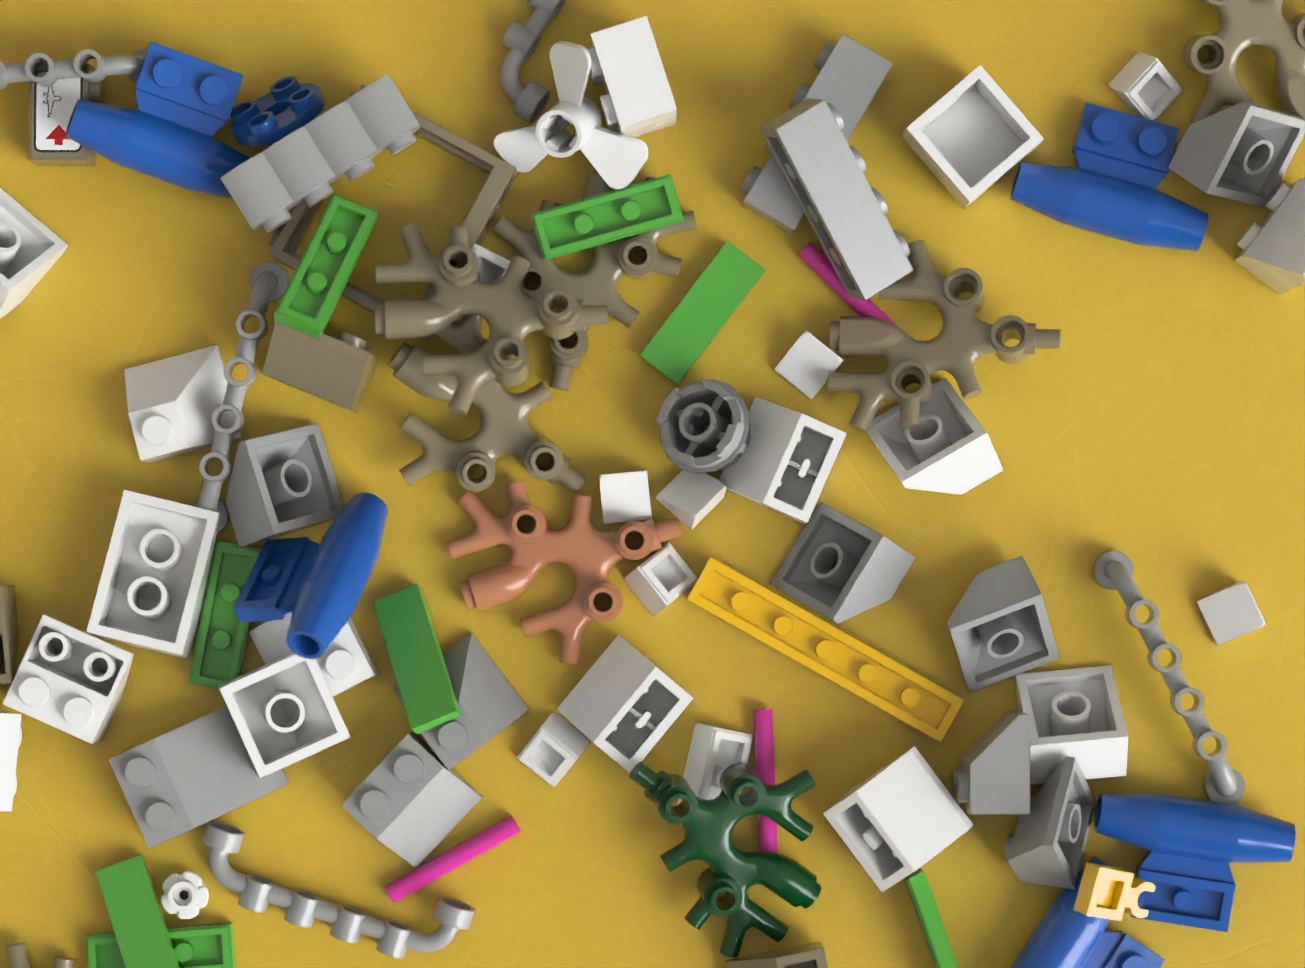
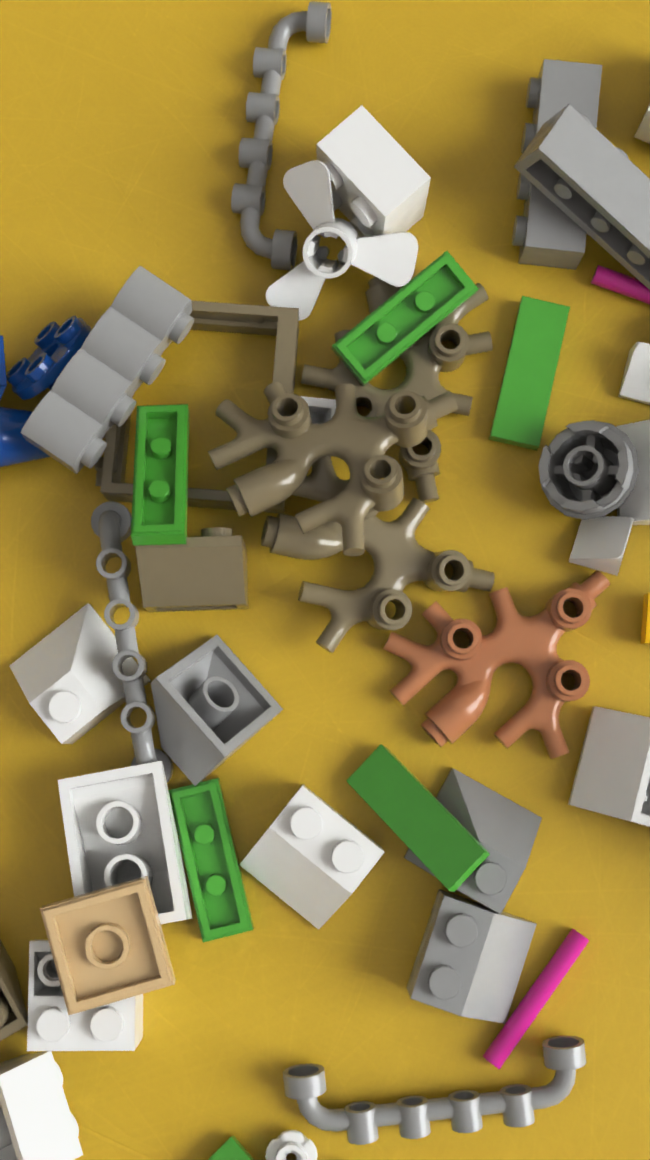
camera: 25 degrees left, 5 degrees down
(108, 646) = (108, 945): none -> tan tile
(190, 777) = (251, 1029): light grey slope -> none
(284, 712) = (312, 930): white slope -> none
(316, 579) = (285, 784): blue plate -> none
(553, 749) = (583, 845): white slope -> none
(625, 497) = (538, 573): white slope -> none
(661, 579) = (608, 637): white slope -> none

